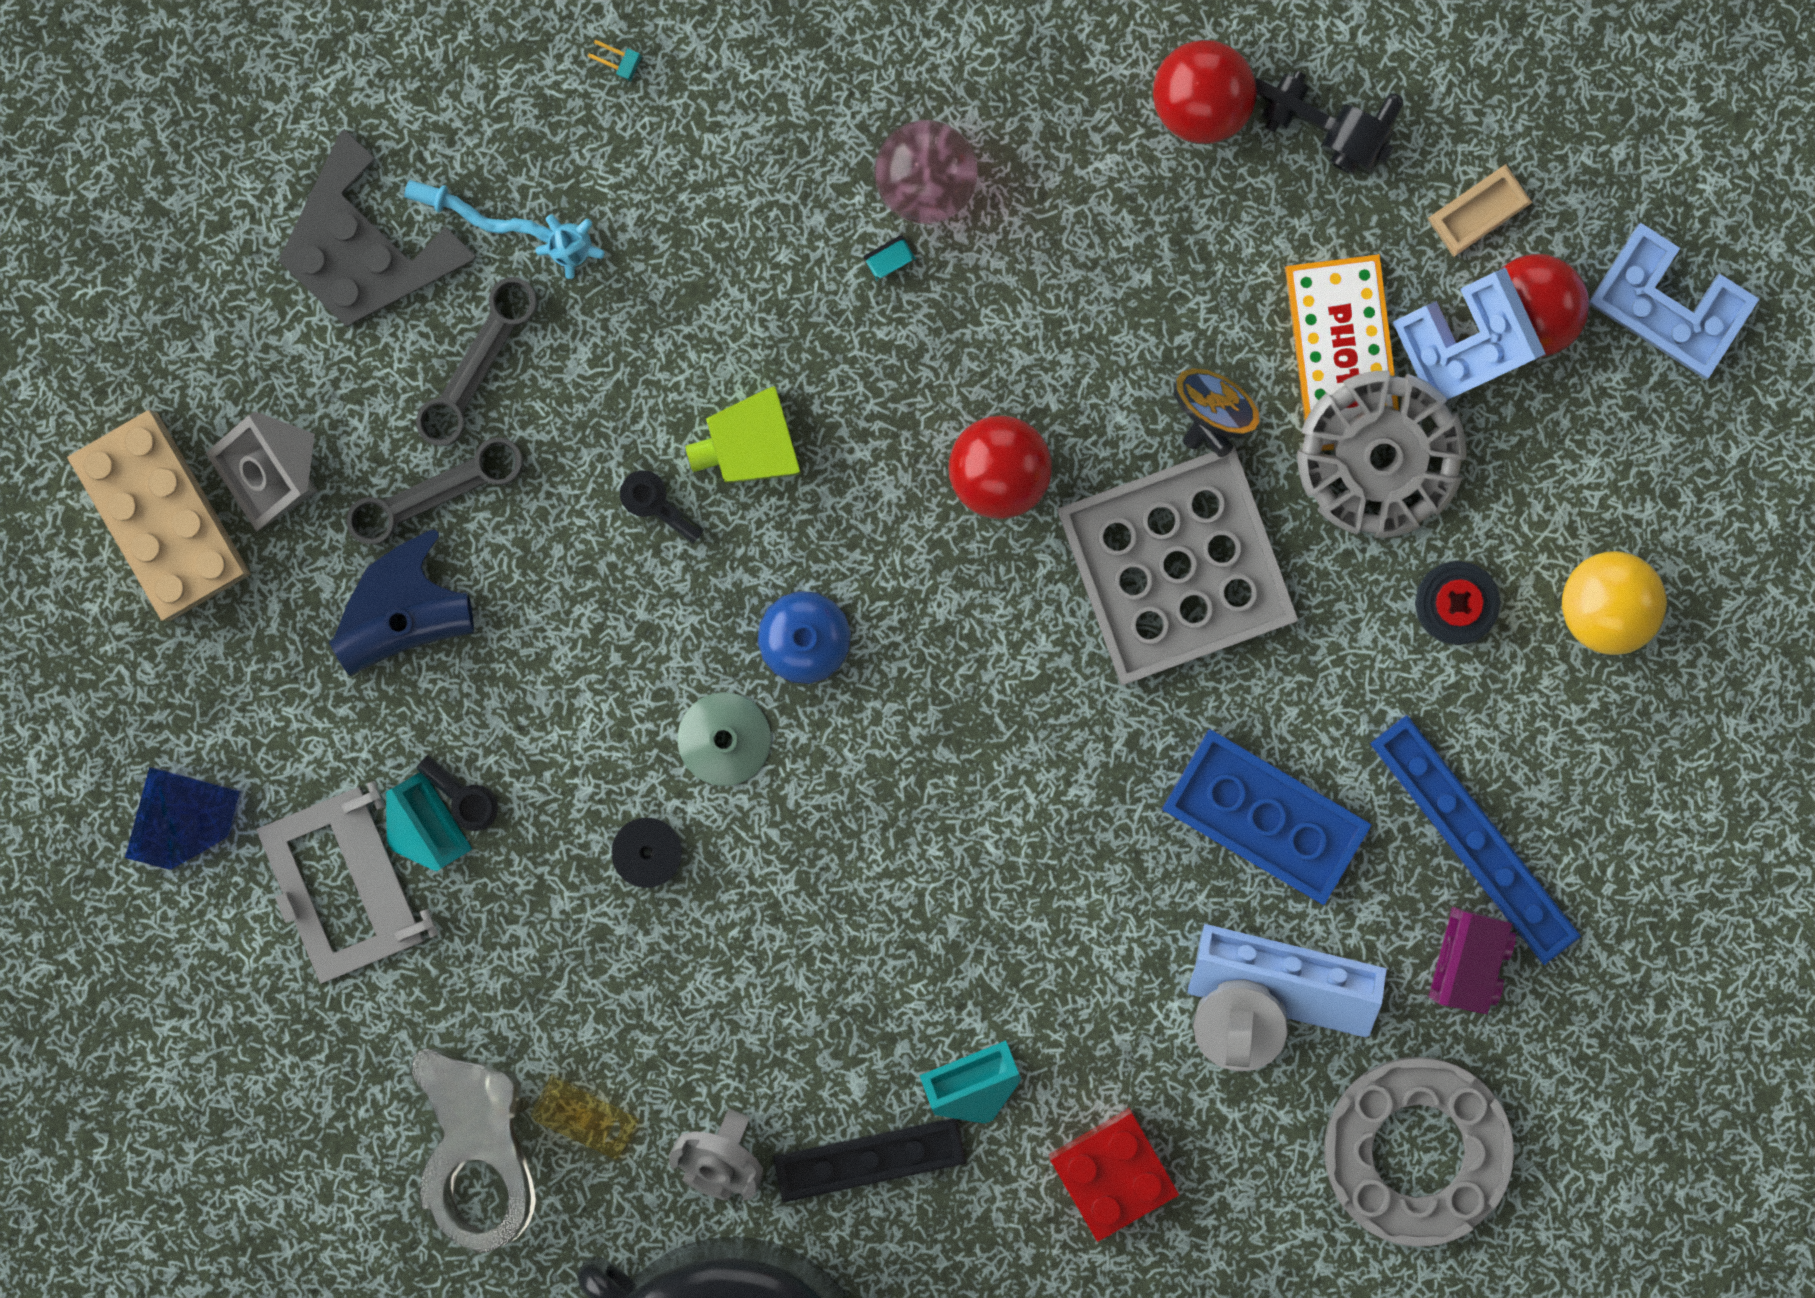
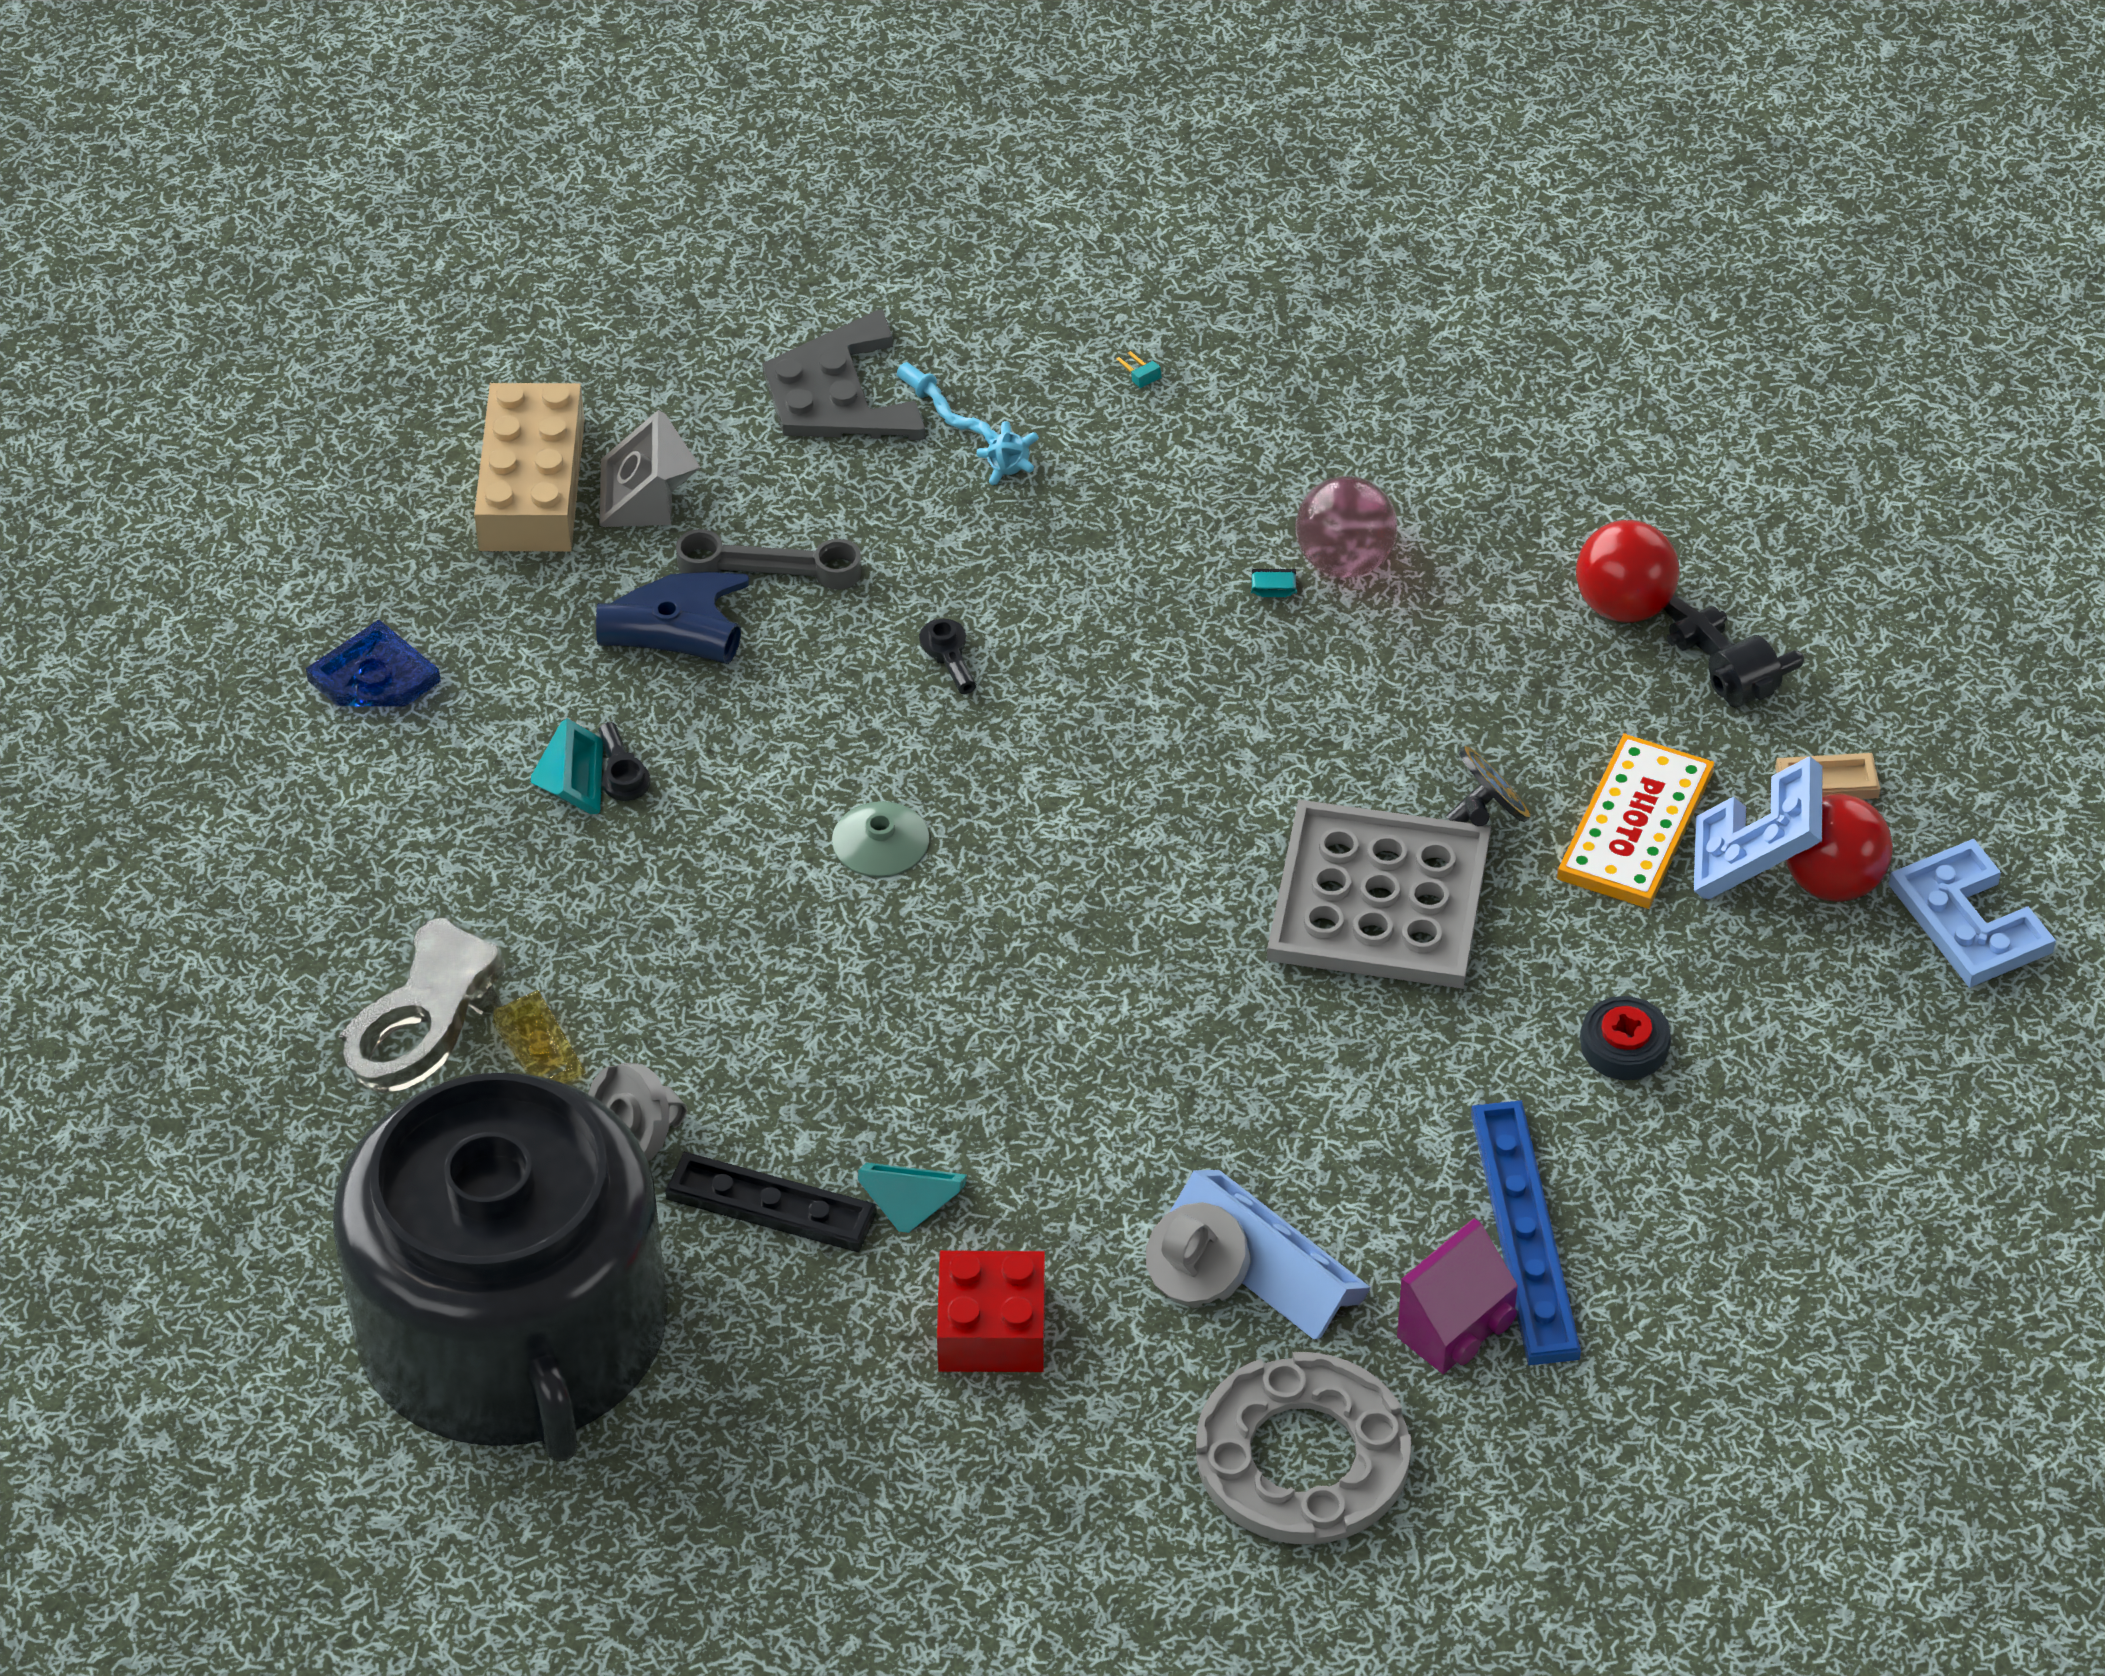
camera: 35 degrees right, 40 degrees down
(370, 871) = (499, 793): light grey piece -> none
(477, 361) = (871, 495): dark grey piece -> none
(629, 854) = (749, 878): black piece -> none
(747, 441) = (1060, 638): lime torso -> none
(804, 637) = (1006, 792): blue cylinder -> none
(1000, 467) = (1267, 734): red piece -> none
(1266, 816) = (1335, 1113): blue plate -> none
(1362, 434) = (1630, 917): light grey plate -> none
(1614, 603) = (1776, 1084): yellow piece -> none

